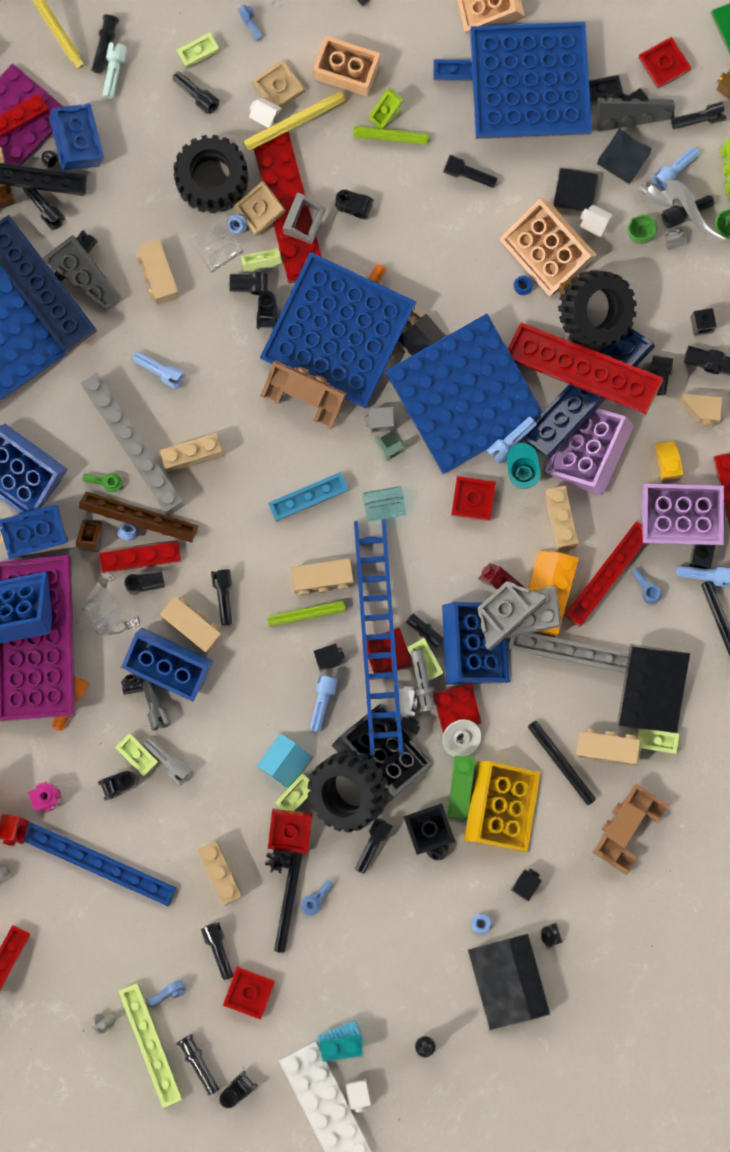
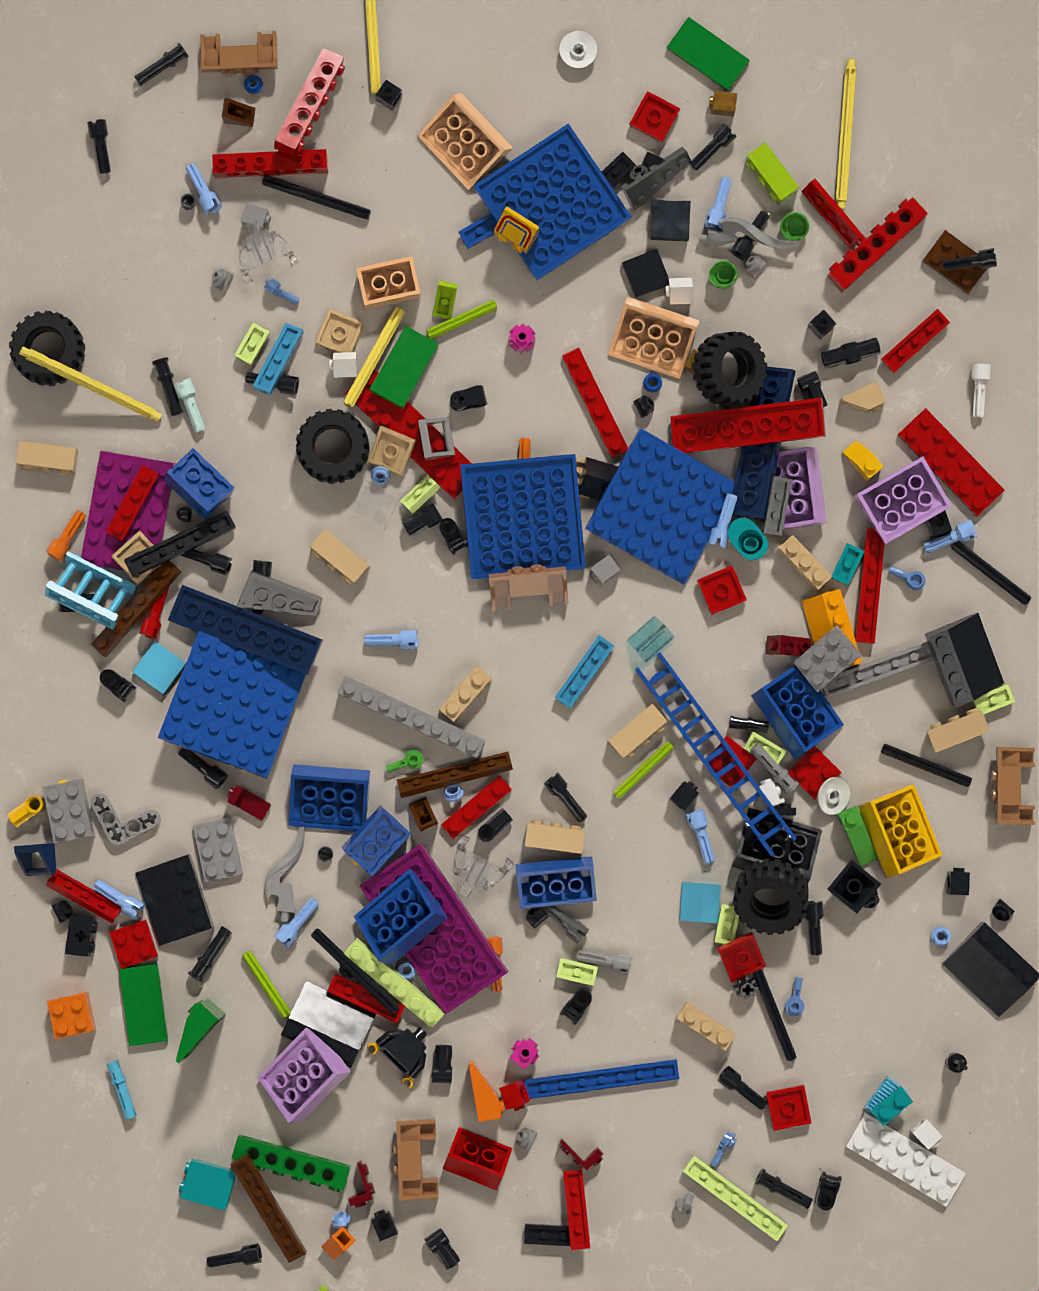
camera: 35 degrees left, 5 degrees up
(46, 930) = (593, 1158): none -> dark red bracket
(211, 74) = (278, 359): none -> dark azure plate
(315, 144) = (404, 367): none -> green tile
(389, 445) = (624, 587): sand green panel -> none
(427, 181) = (522, 345): none -> dark pink brick
(457, 167) = (535, 314): black piece -> none
(462, 272) = (595, 402): none -> red plate
(482, 81) = (516, 230): none -> yellow slope
(504, 300) = (644, 405): none -> black plate
(506, 610) = (809, 669): light grey wing -> none
(566, 452) = (776, 505): none -> dark grey plate
(598, 543) = (847, 564): none -> teal plate

